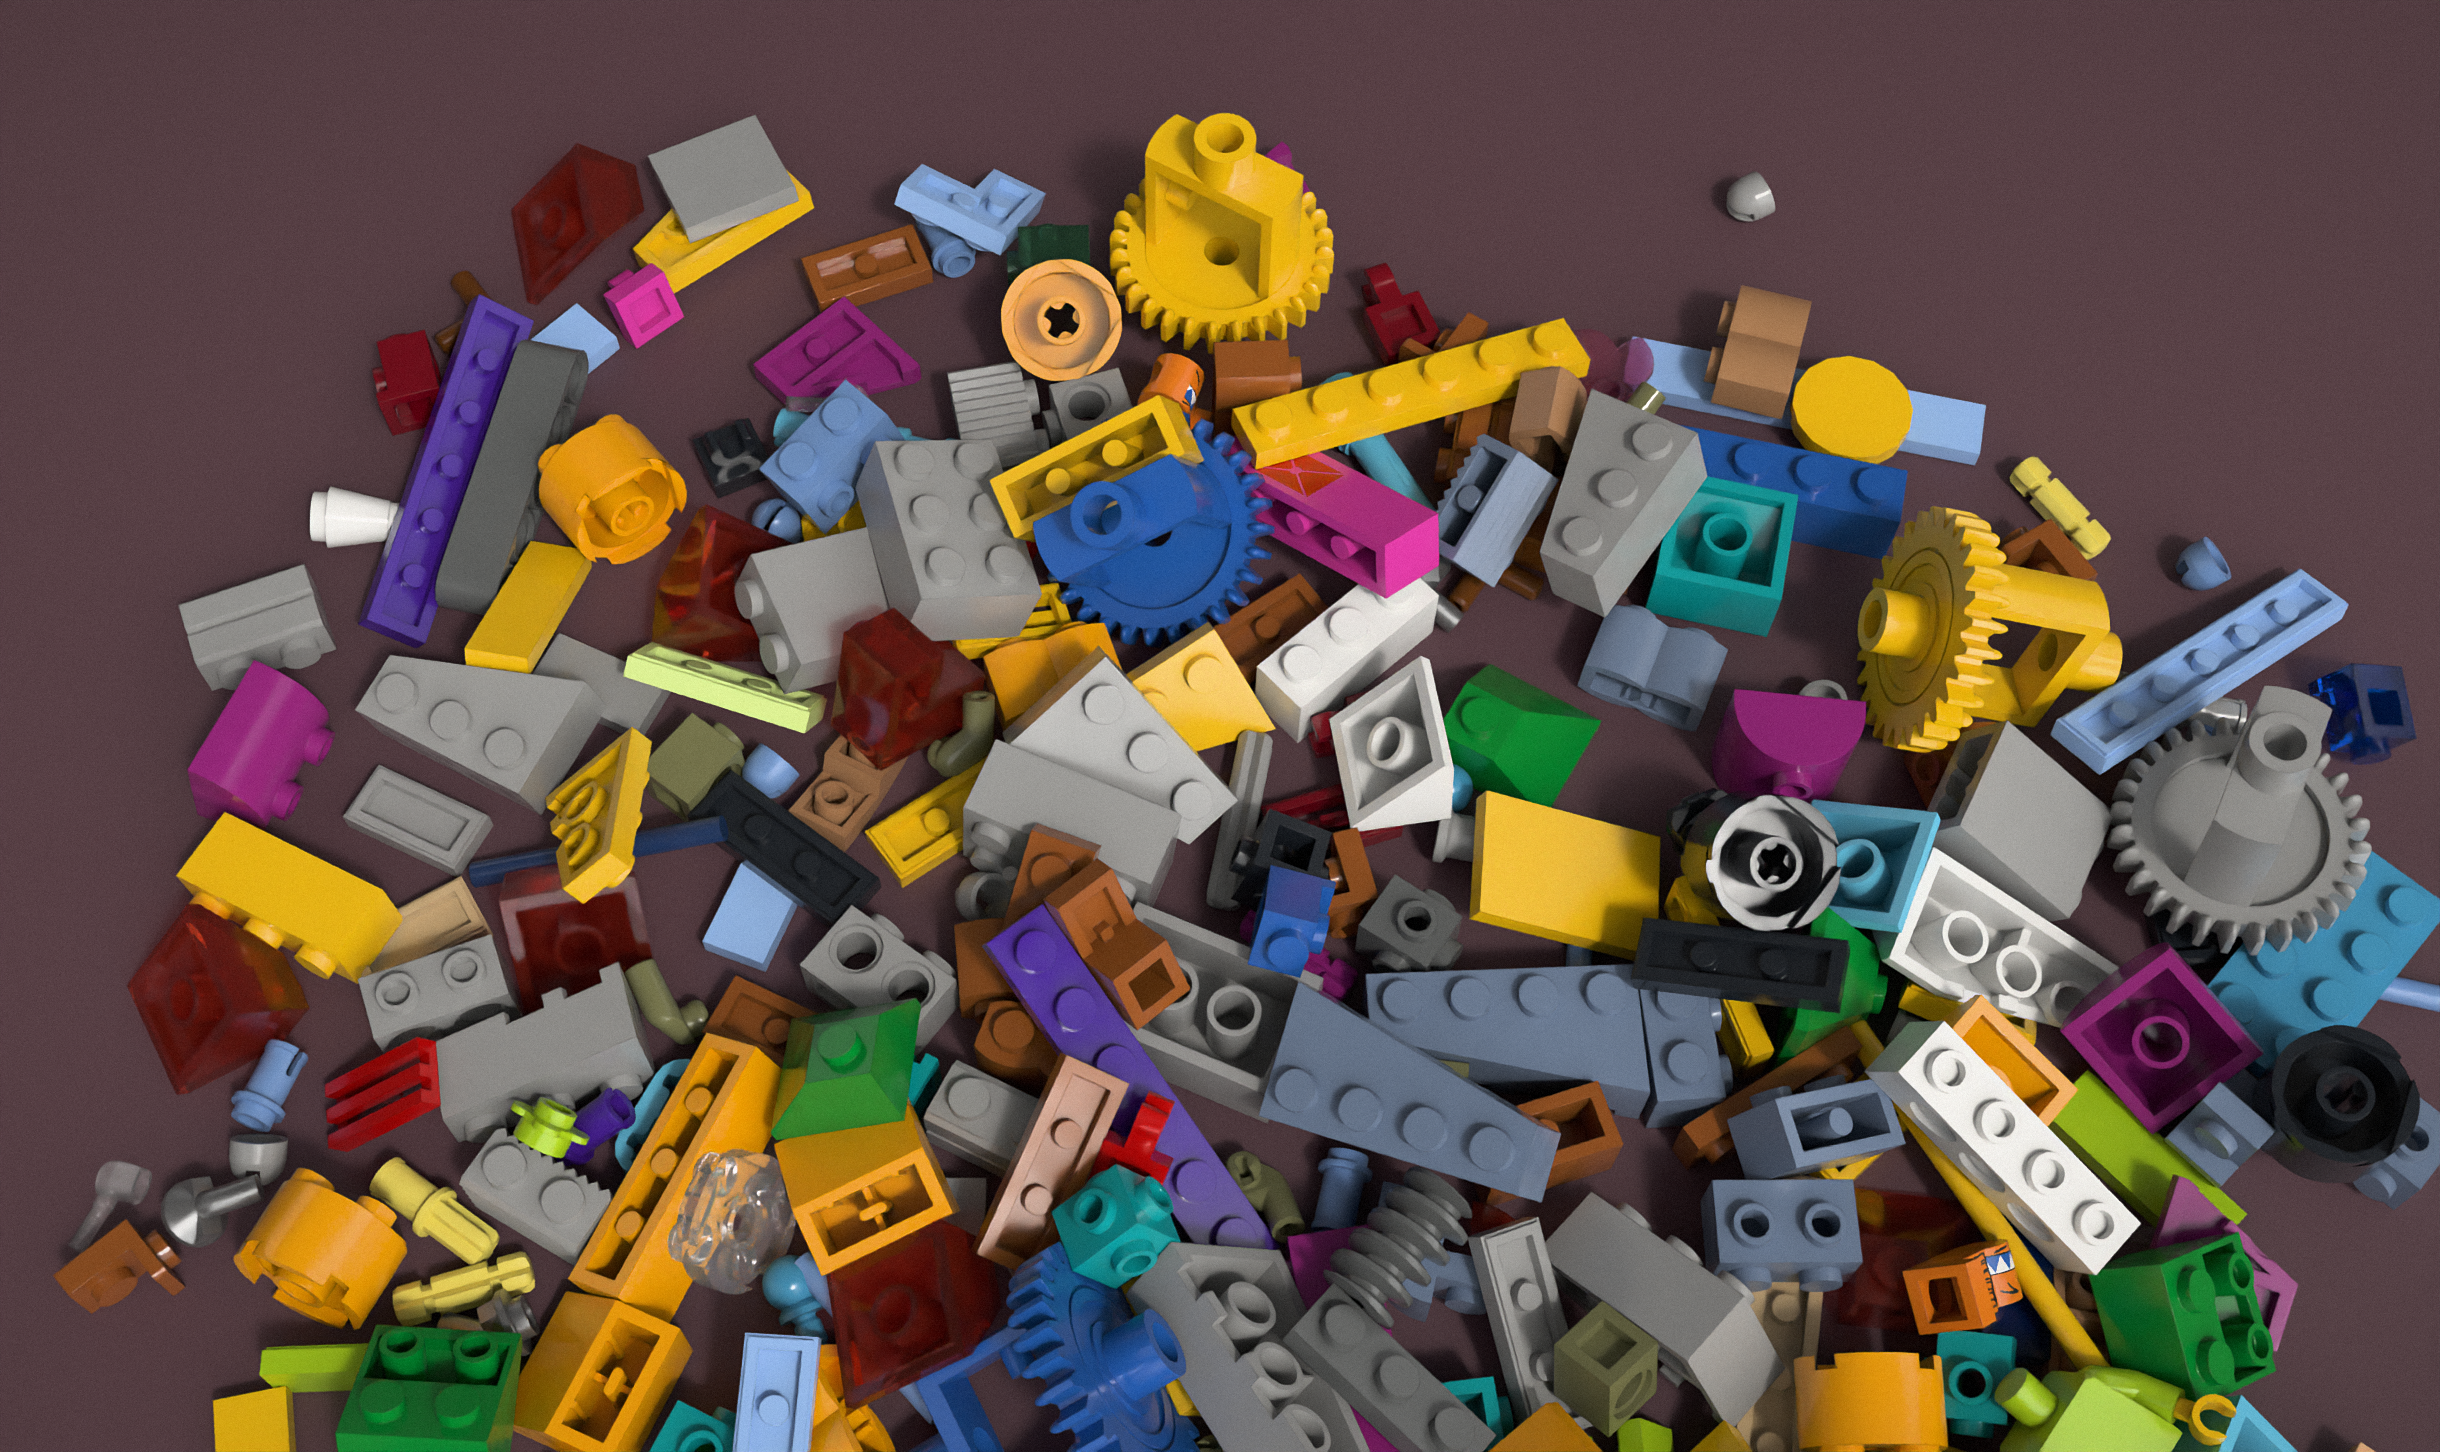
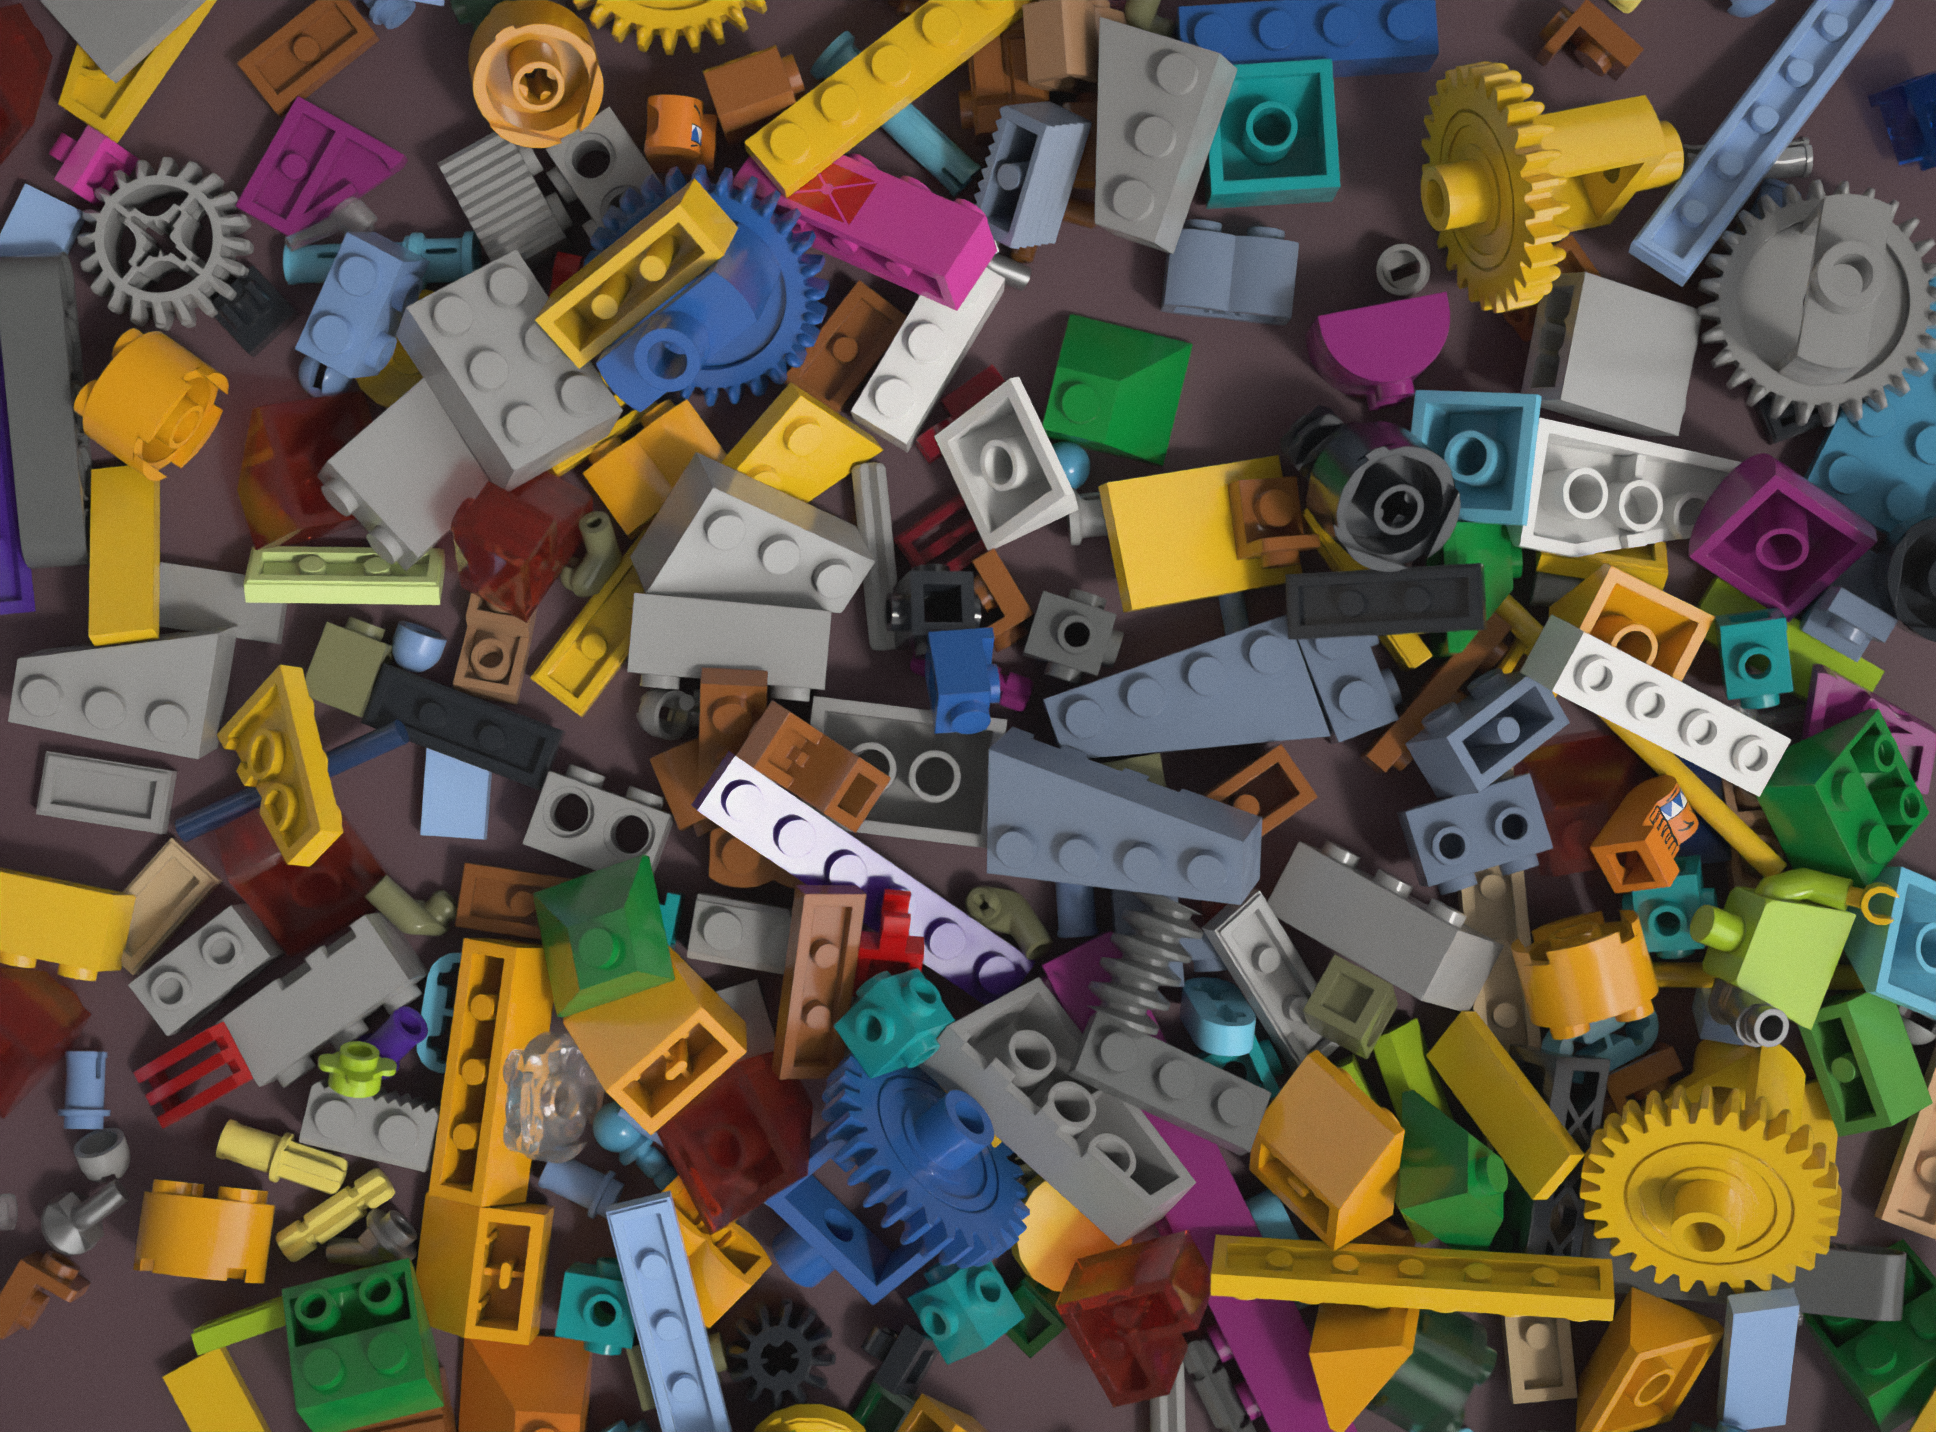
camera: 15 degrees left, 25 degrees up
(695, 352) = (148, 260): none -> light grey gear
(721, 1327) = (582, 1185): none -> medium blue pin
(1458, 1346) = (1217, 1016): none -> medium azure beam
(1637, 882) = (1269, 522): none -> dark orange bracket
(2121, 1119) = (1750, 634): none -> teal brick

